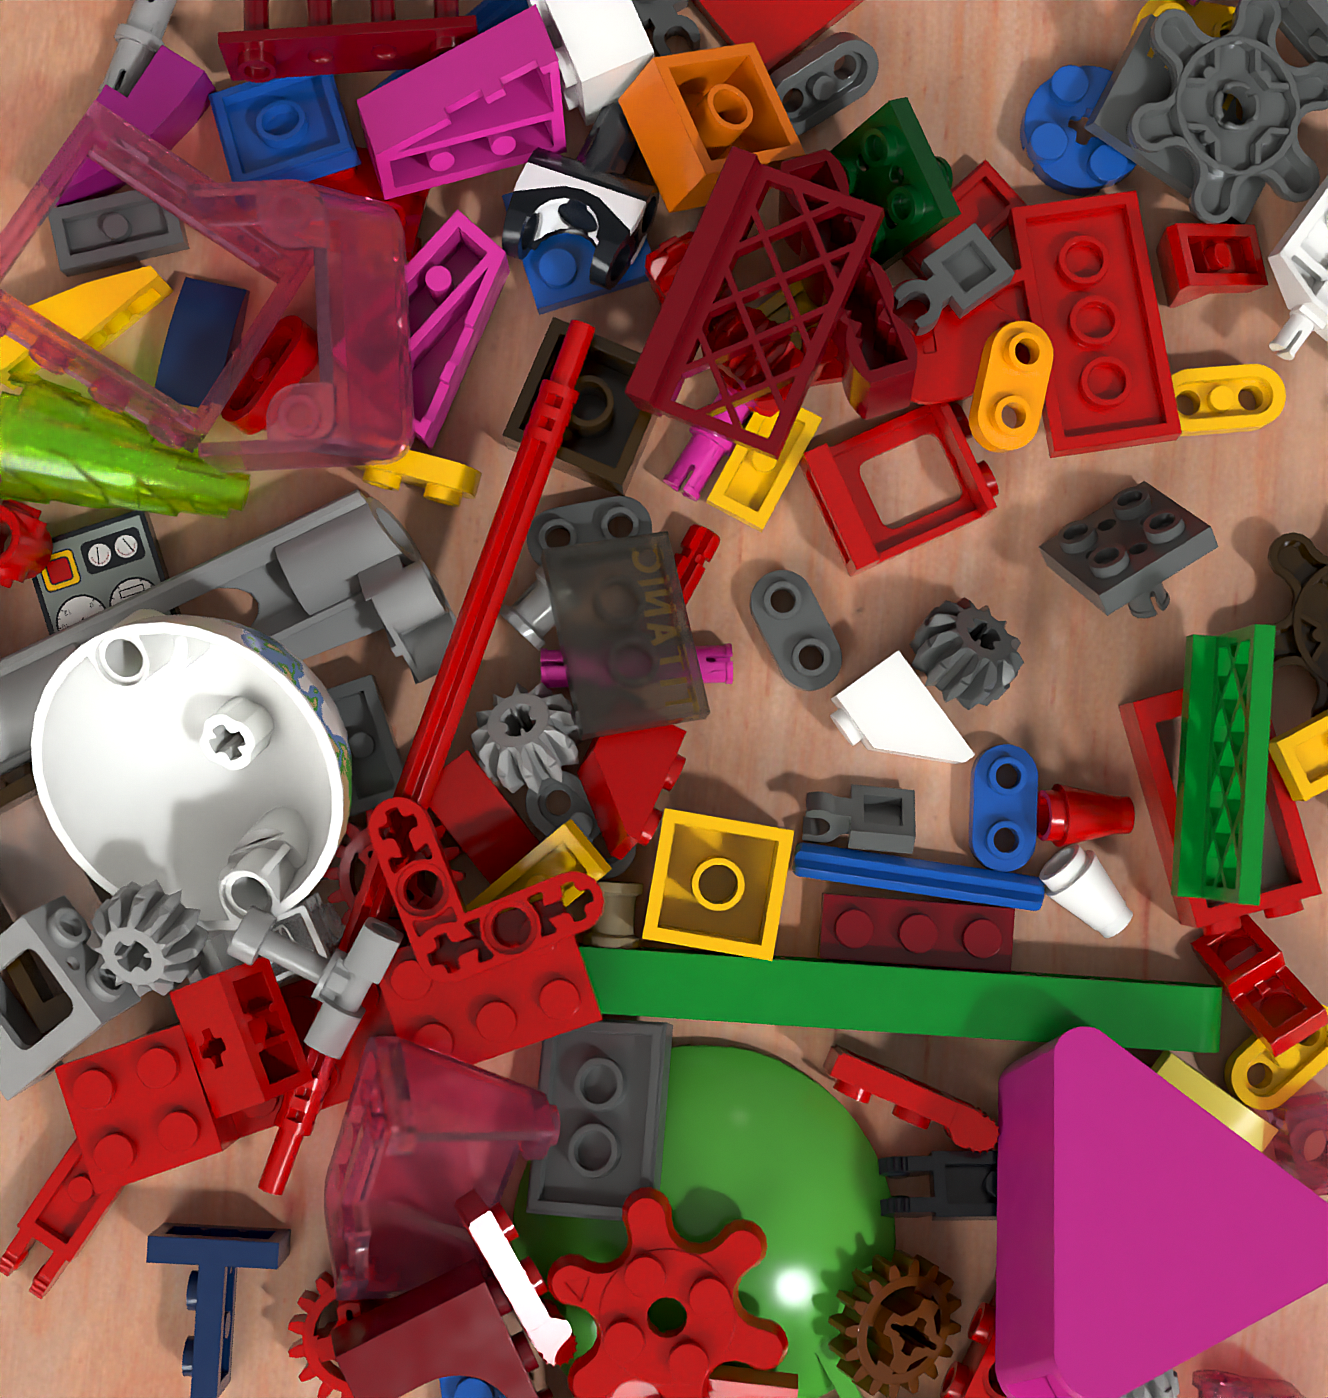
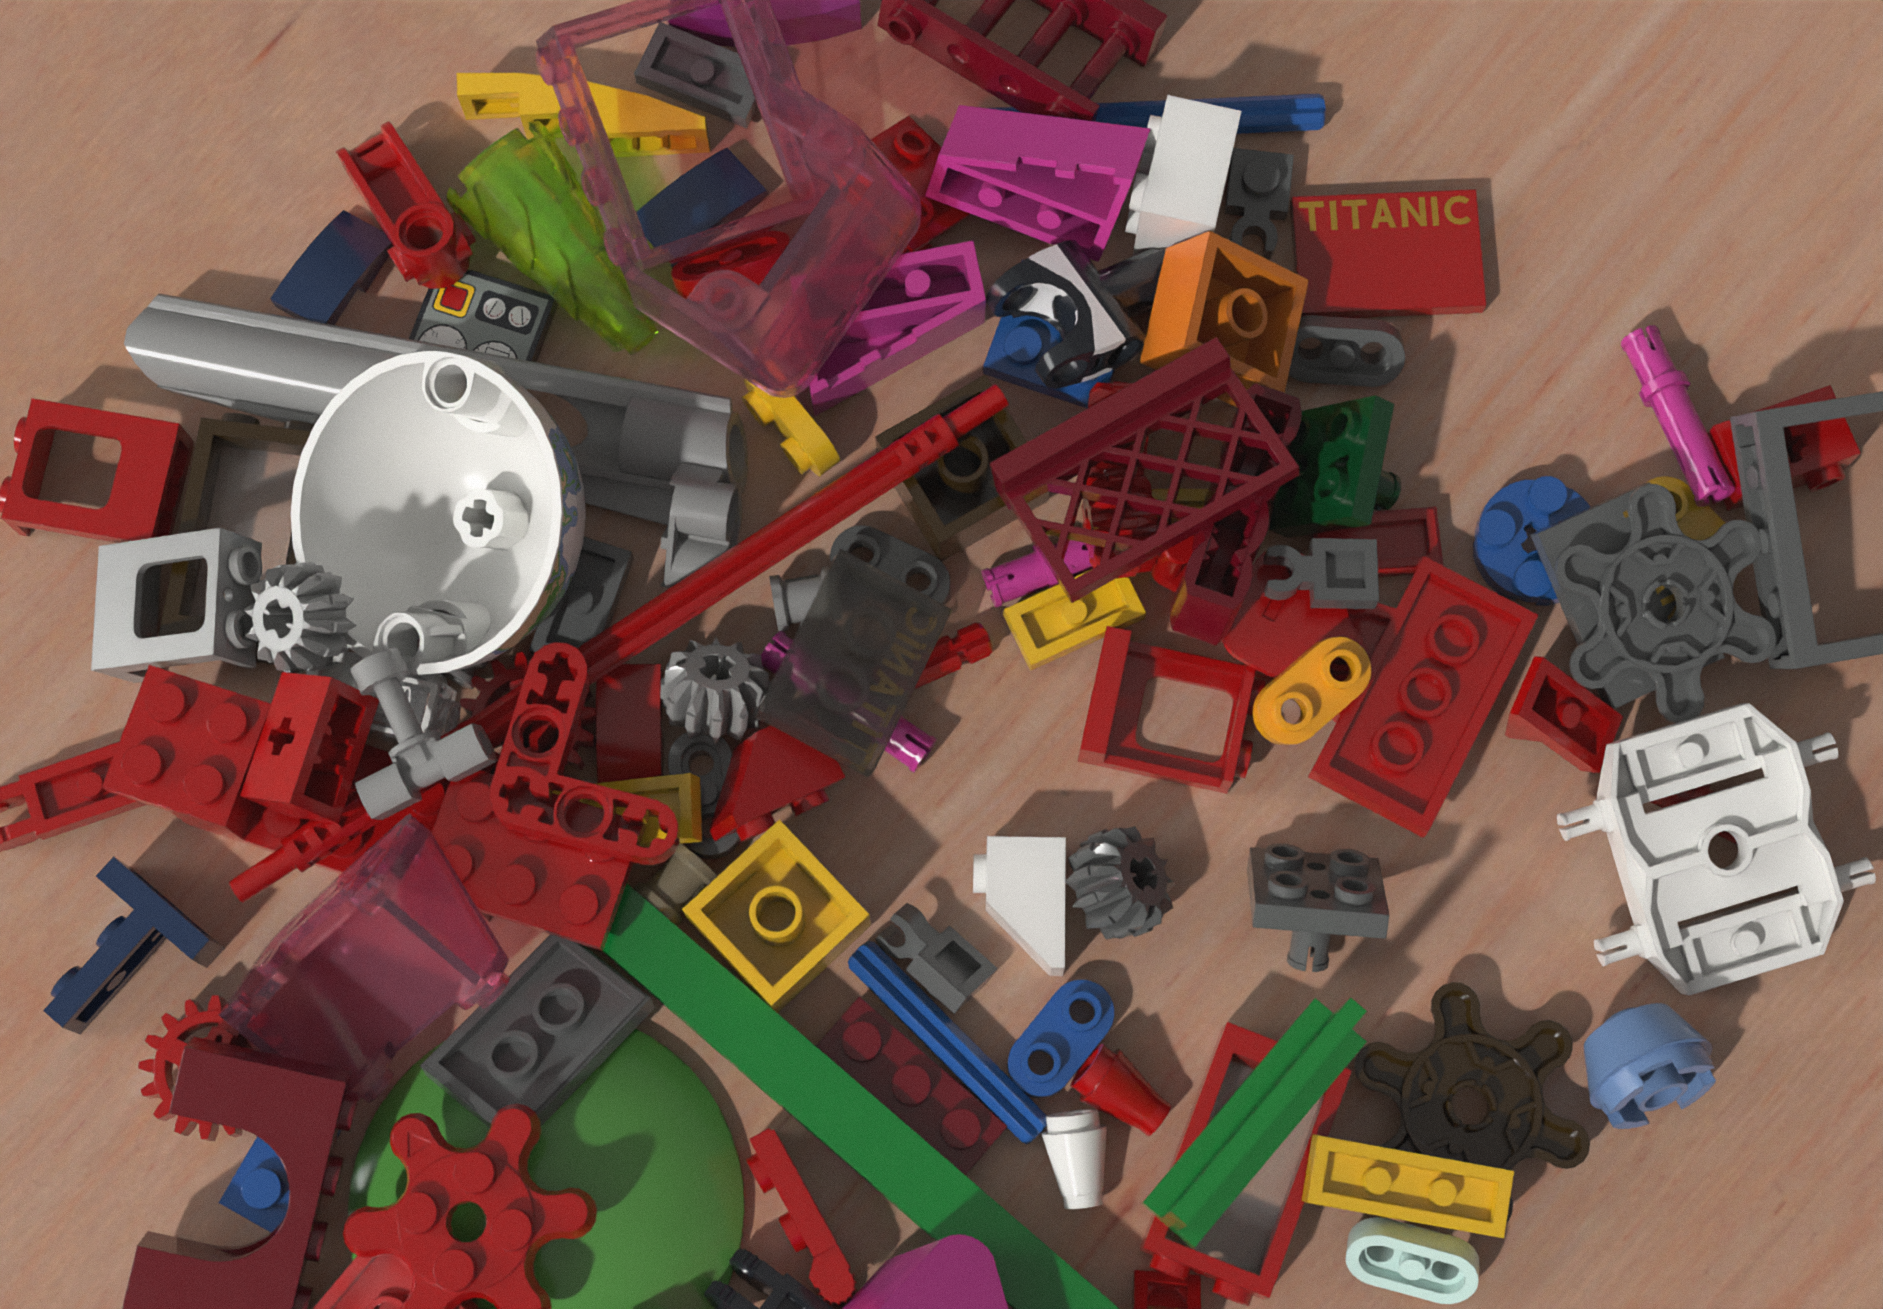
camera: 40 degrees right, 10 degrees down
(284, 129) = (890, 90): blue tile -> none
(519, 1280) = (372, 1110): hinge -> none
(794, 630) = (998, 767): dark grey plate -> none
(1216, 398) = (1489, 831): yellow plate -> none

